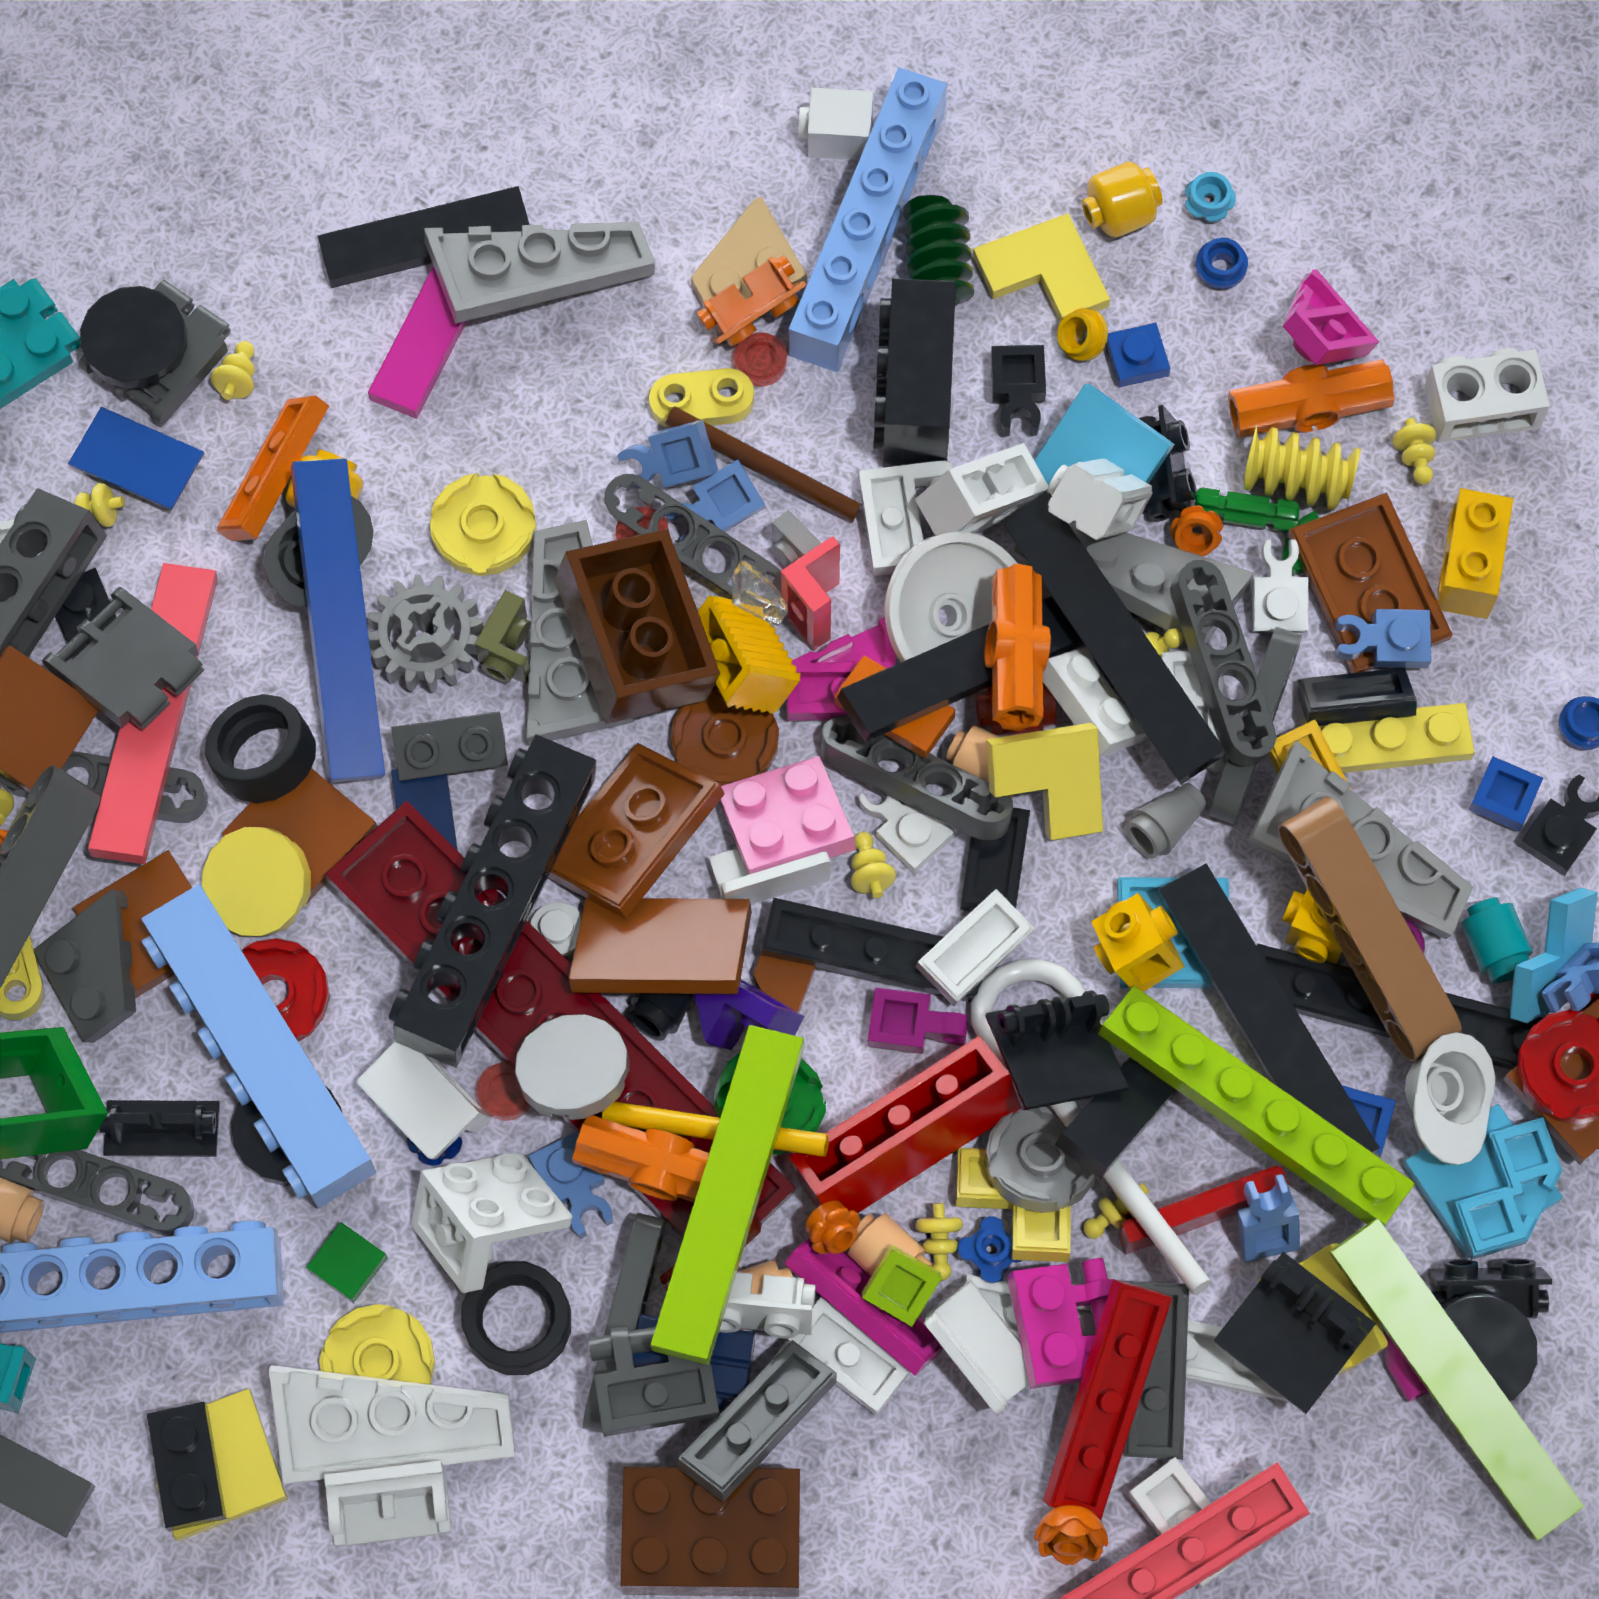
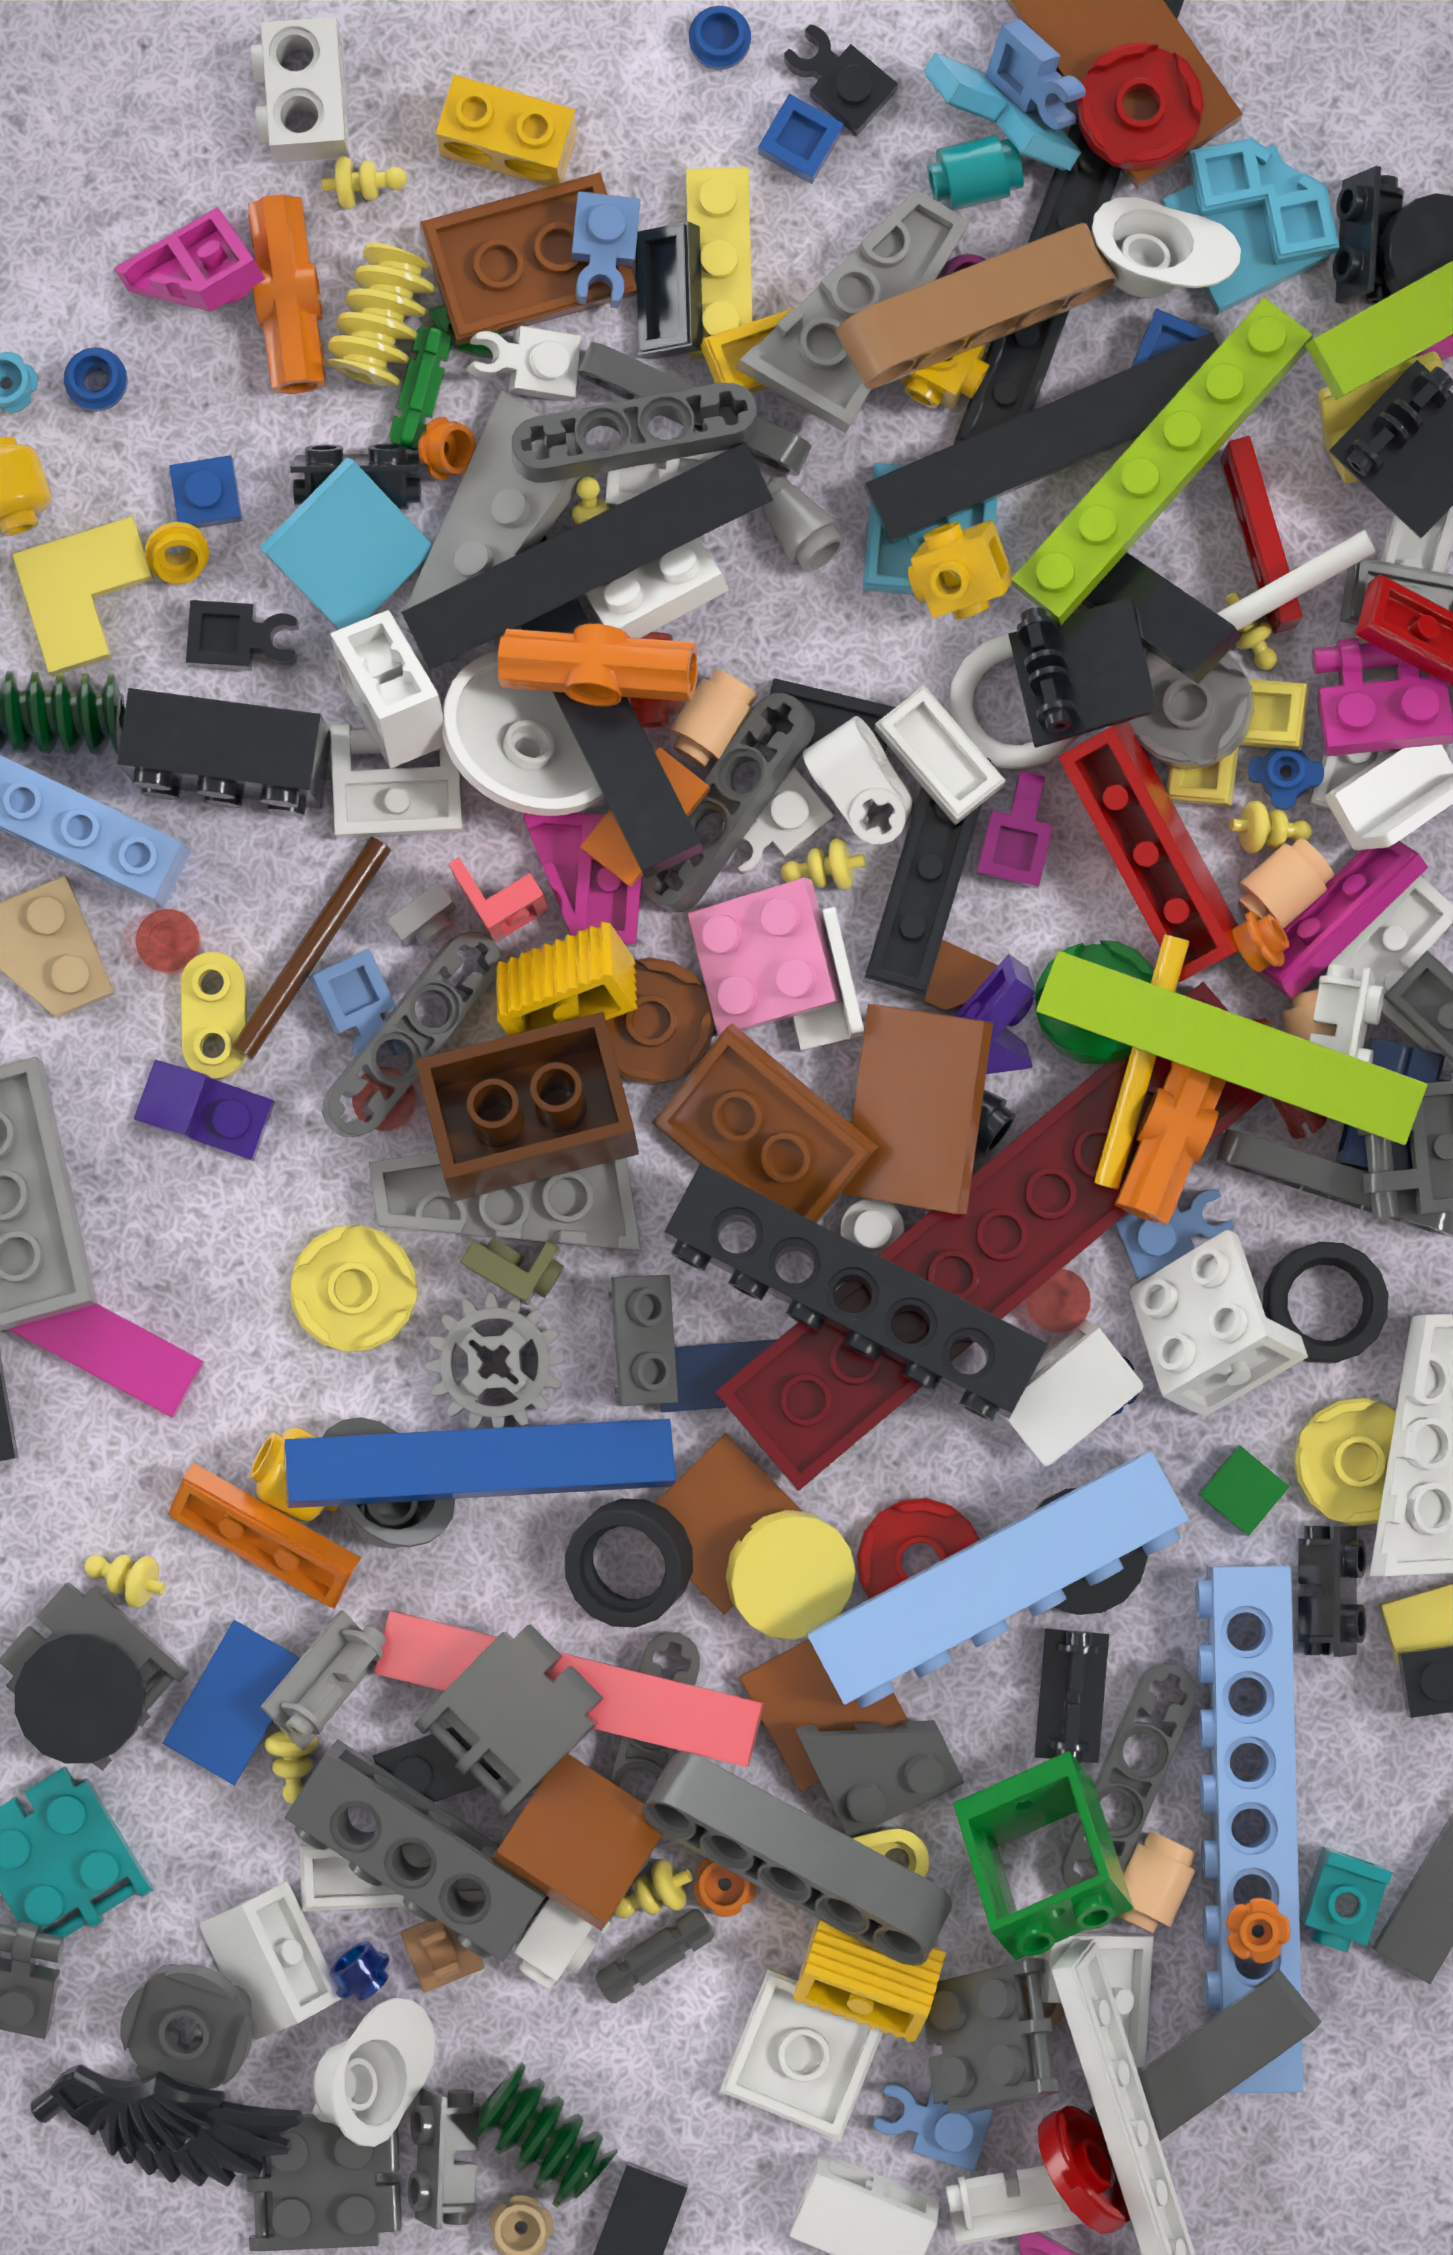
camera: 85 degrees left, 15 degrees up
(154, 519) = (324, 1678): none -> light grey hinge
(234, 1348) = (1336, 1614): none -> black hinge
(572, 1066) = (1059, 1216): tile -> none
(621, 398) = (204, 1109): none -> dark purple slope
(676, 454) = (294, 1049): medium blue plate -> none
(757, 594) = (491, 965): clear tile -> none
(770, 292) = (94, 915): orange hinge -> none
(901, 1285) = (1333, 870): lime tile -> none
(945, 880) = (854, 774): none -> white piece
(1059, 763) = (737, 637): light yellow tile -> none
(1098, 497) = (416, 552): white brick -> none
(1269, 1222) = (1284, 465): medium blue plate -> none

